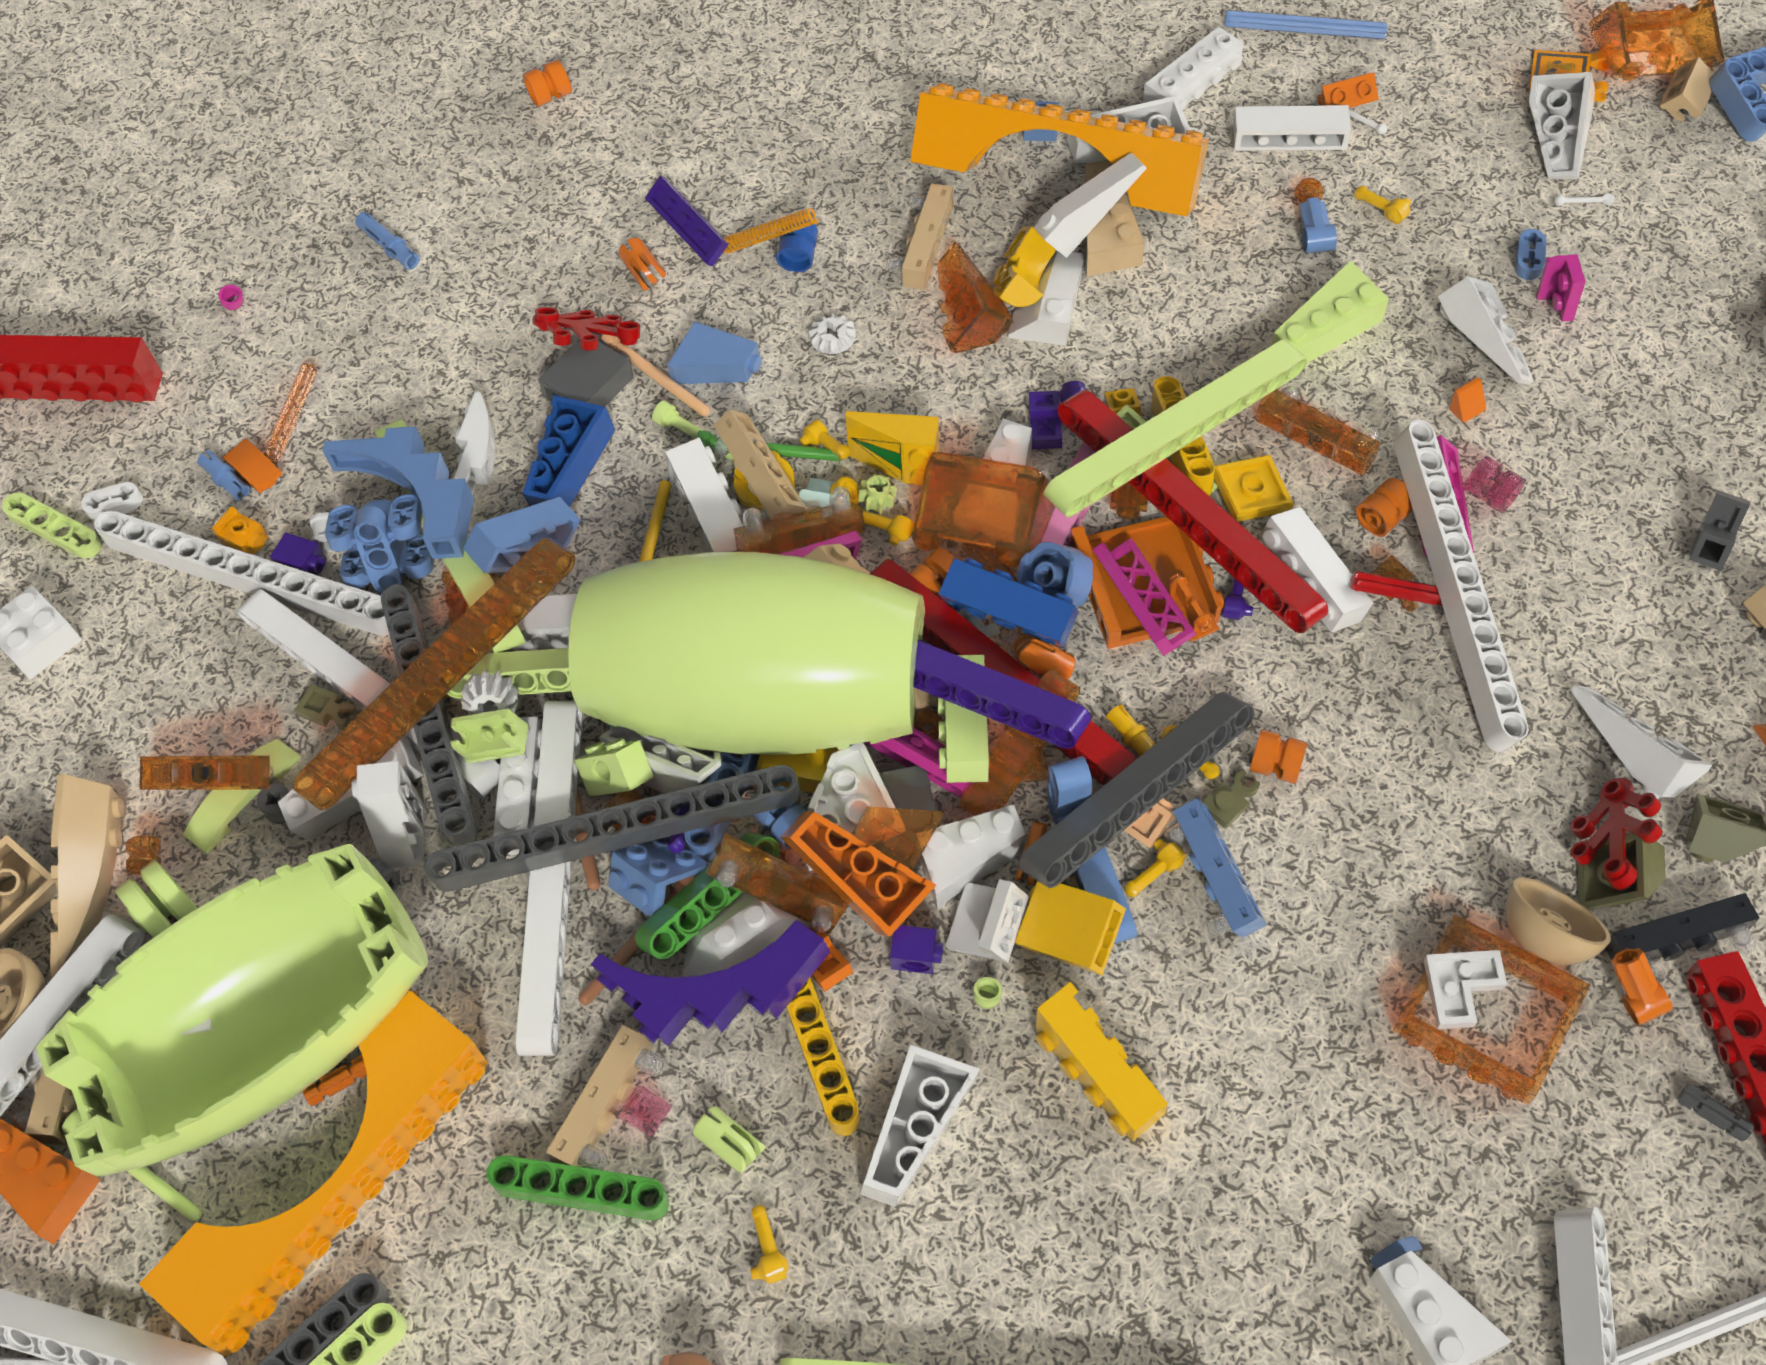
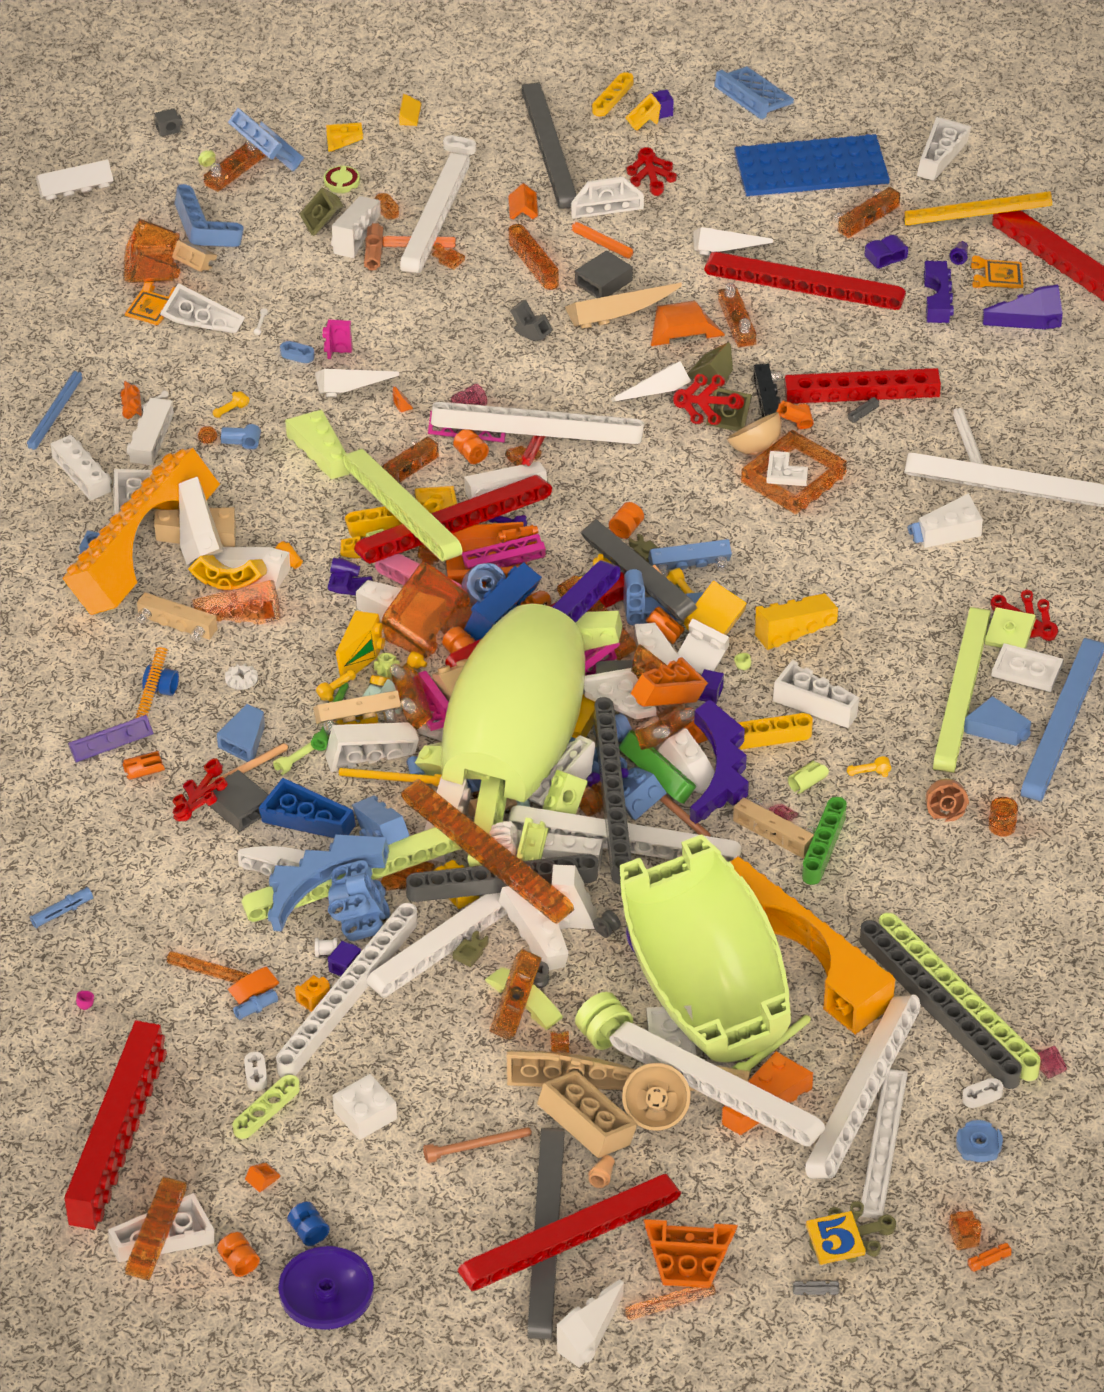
camera: 85 degrees left, 15 degrees down
(1084, 331) = (295, 560): none -> light orange cone

